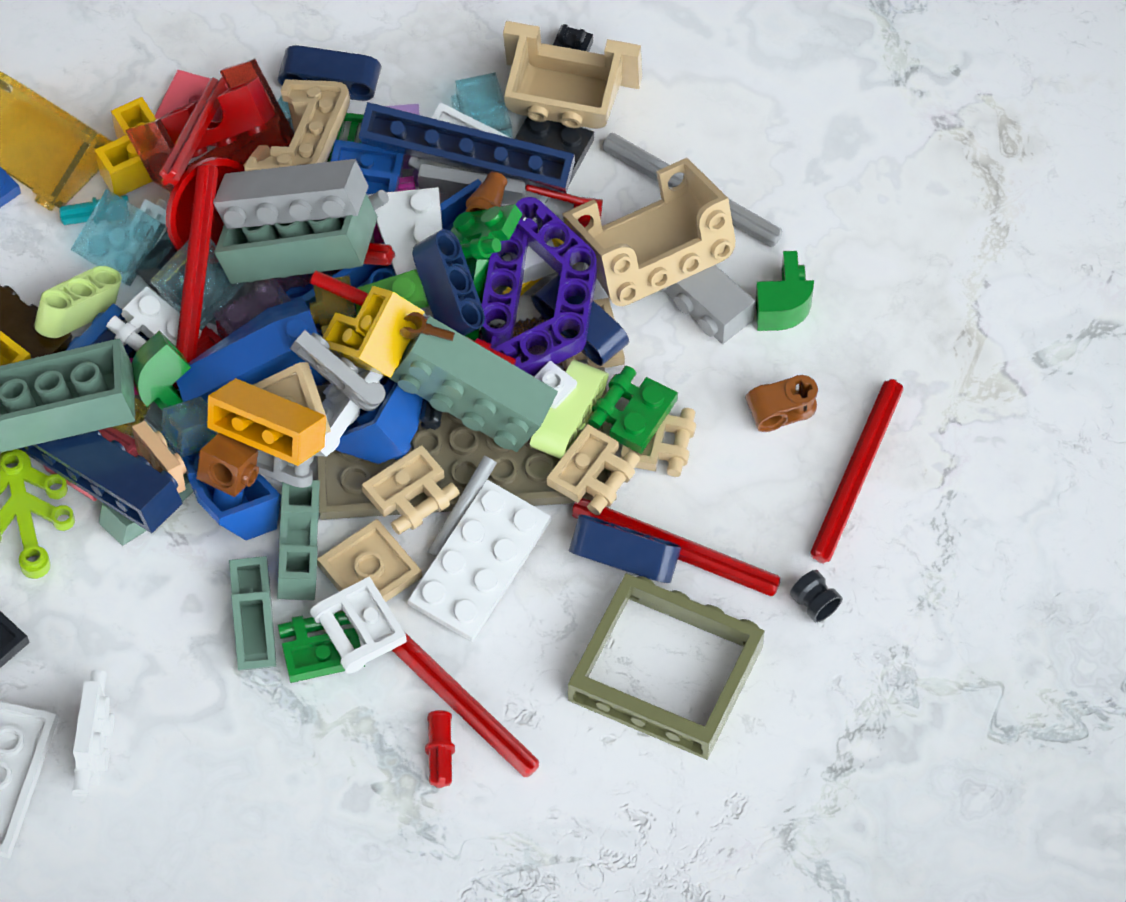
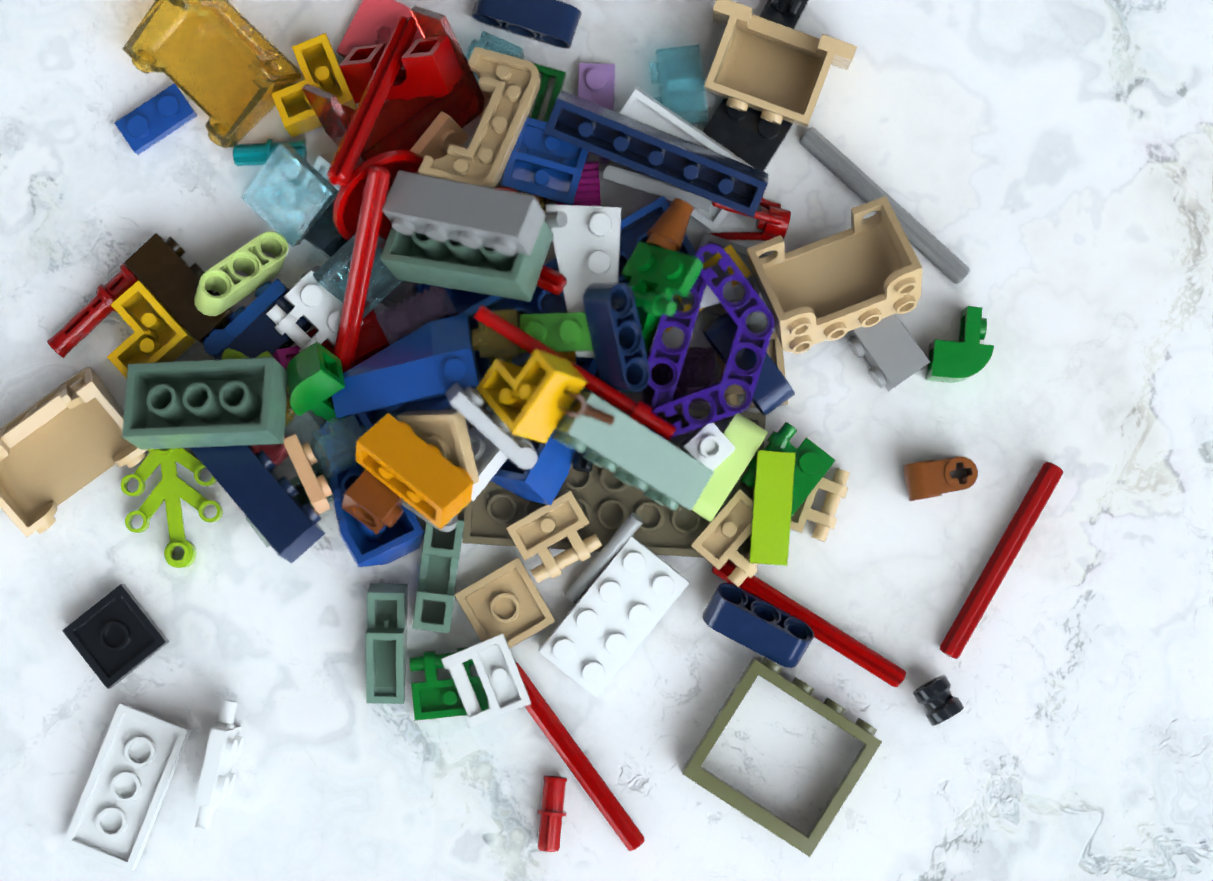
camera: 10 degrees right, 25 degrees up
(621, 433) = (772, 508): none -> lime tile

